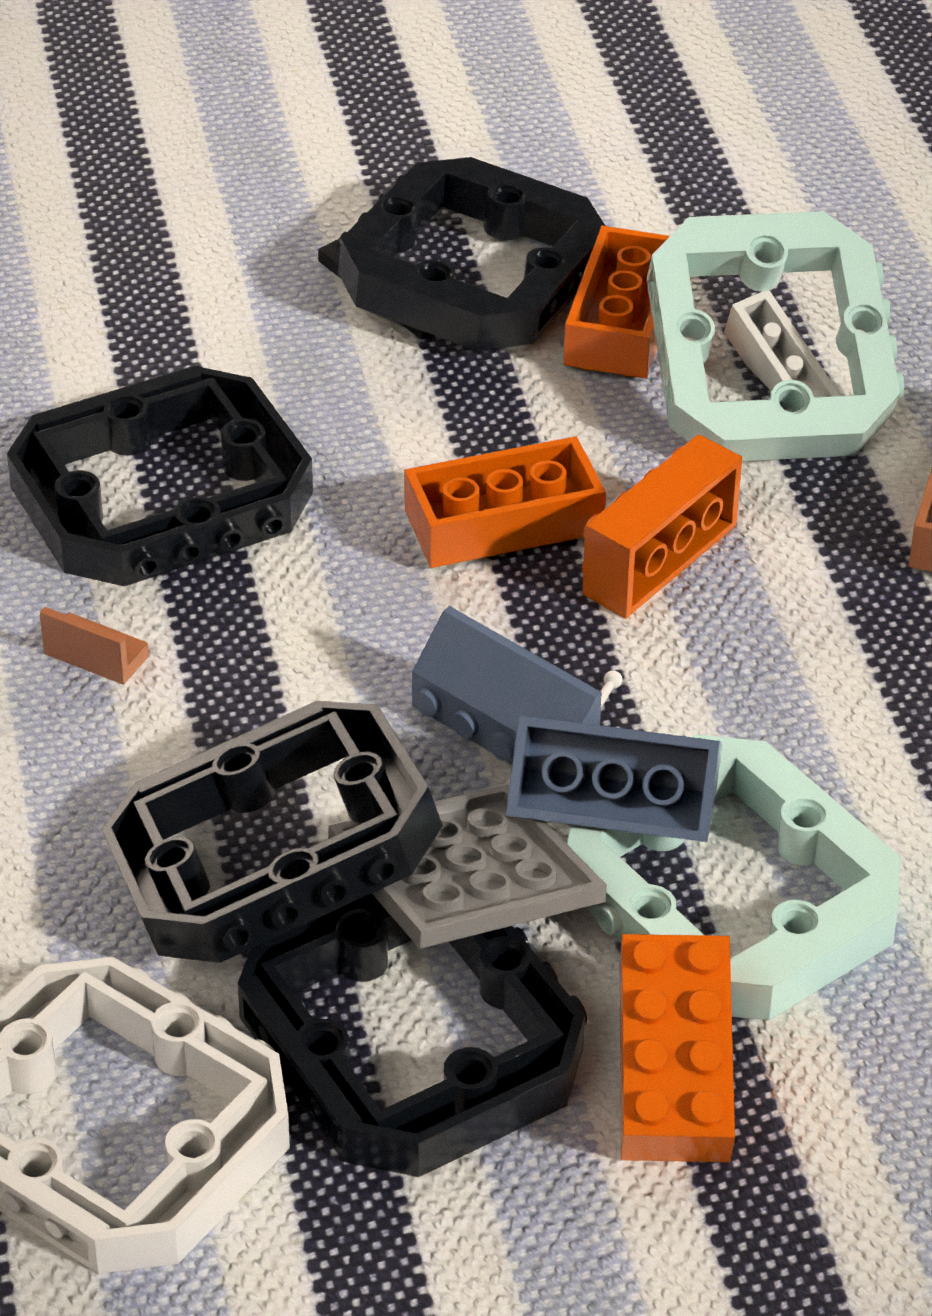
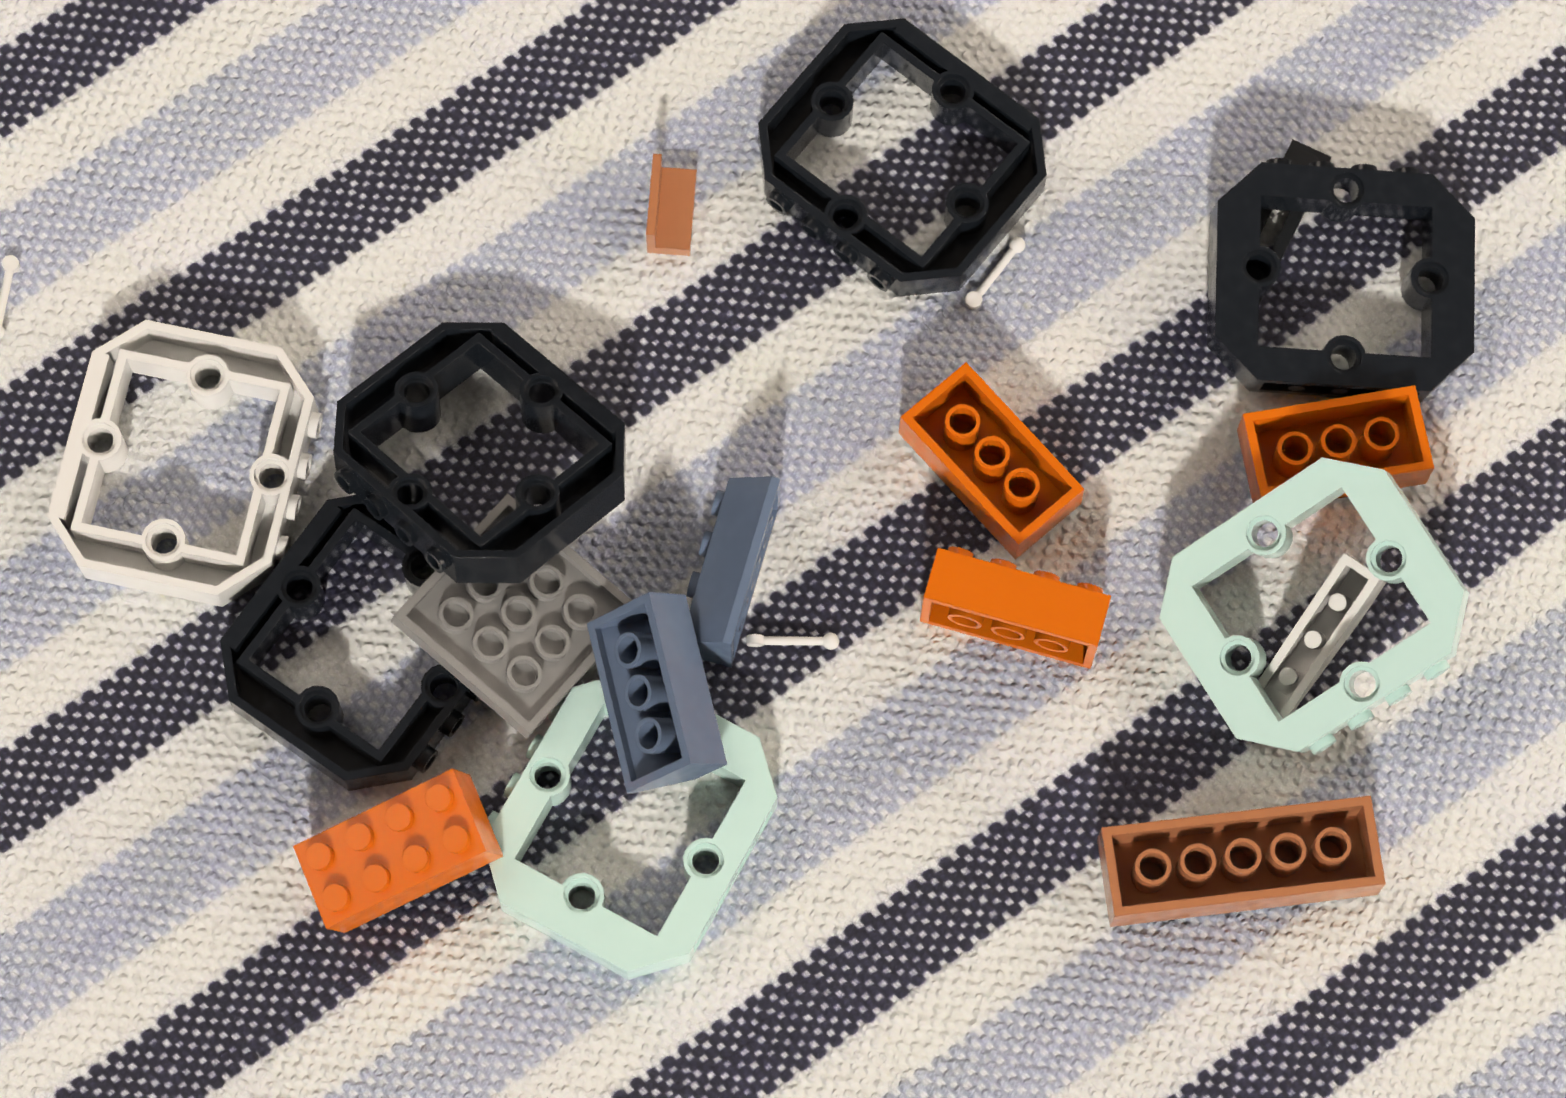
camera: 65 degrees right, 30 degrees up
(329, 482) = (974, 298): none -> white hinge

